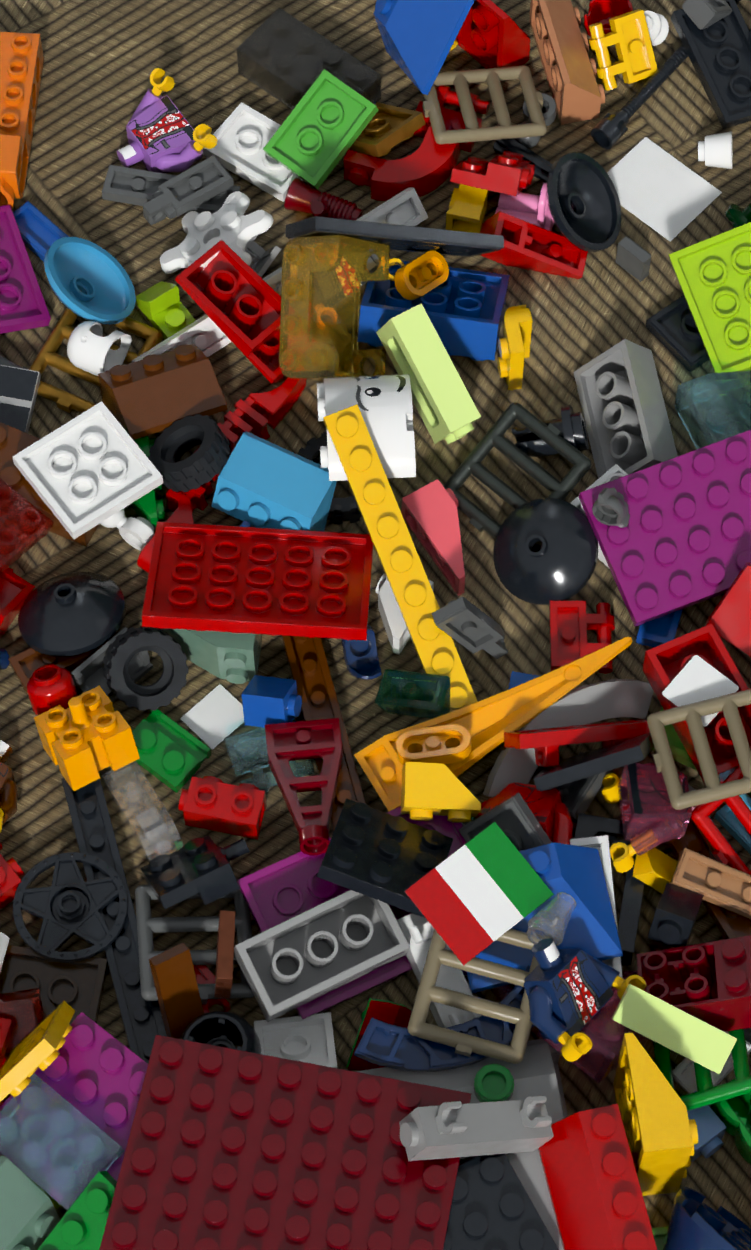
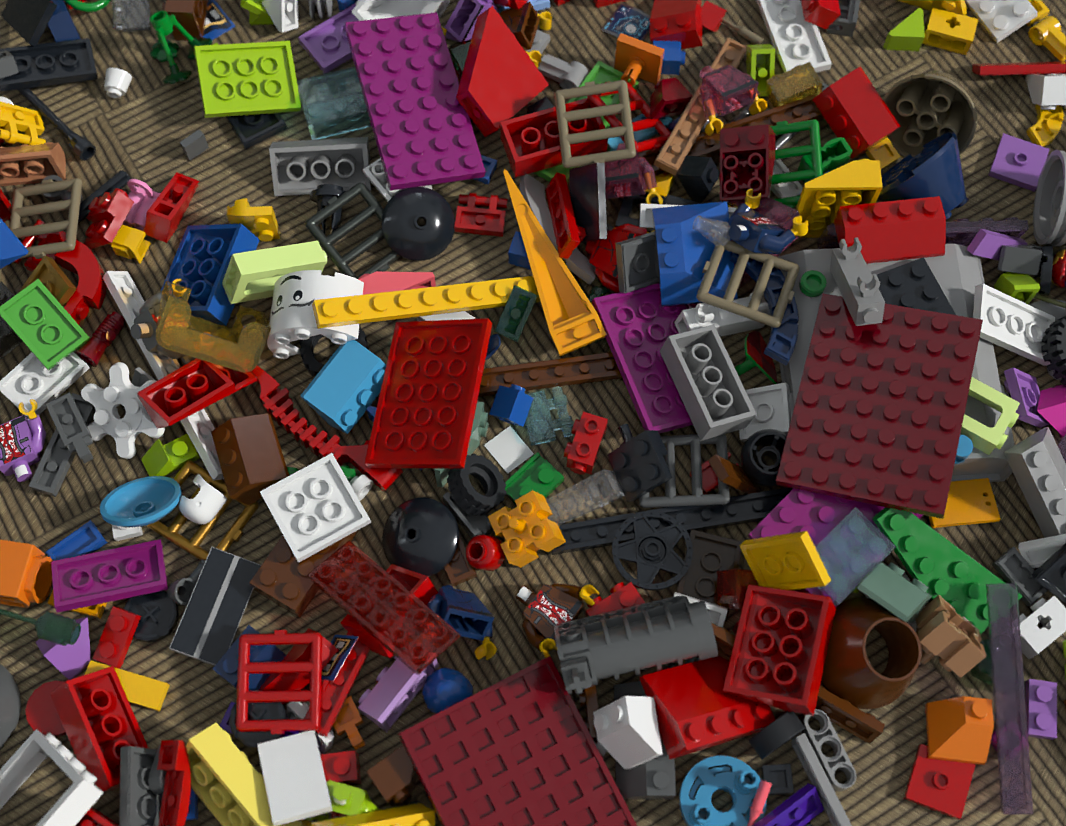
camera: 85 degrees left, 5 degrees up
(198, 467) = (289, 437): black tyre -> none
(225, 954) = (703, 444): copper tile -> none
(300, 742) = (546, 382): dark red plate -> none
(381, 854) = (652, 330): black plate -> none
(400, 236) = (162, 276): black tile -> none
(421, 275) = (188, 270): light orange plate -> none
(434, 744) = (566, 300): light orange plate -> none
(435, 790) = (602, 300): yellow slope -> none
(471, 627) = (476, 268): dark grey hinge -> none
(479, 893) = (690, 270): sticker -> none
(584, 202) = (146, 165): black dish -> none
(611, 508) = (410, 165): dark grey piece -> none
(660, 189) = (135, 127): white sticker -> none
(674, 1028) = (782, 177): yellowish green tile -> none
(698, 683) = (544, 134): white sticker -> none

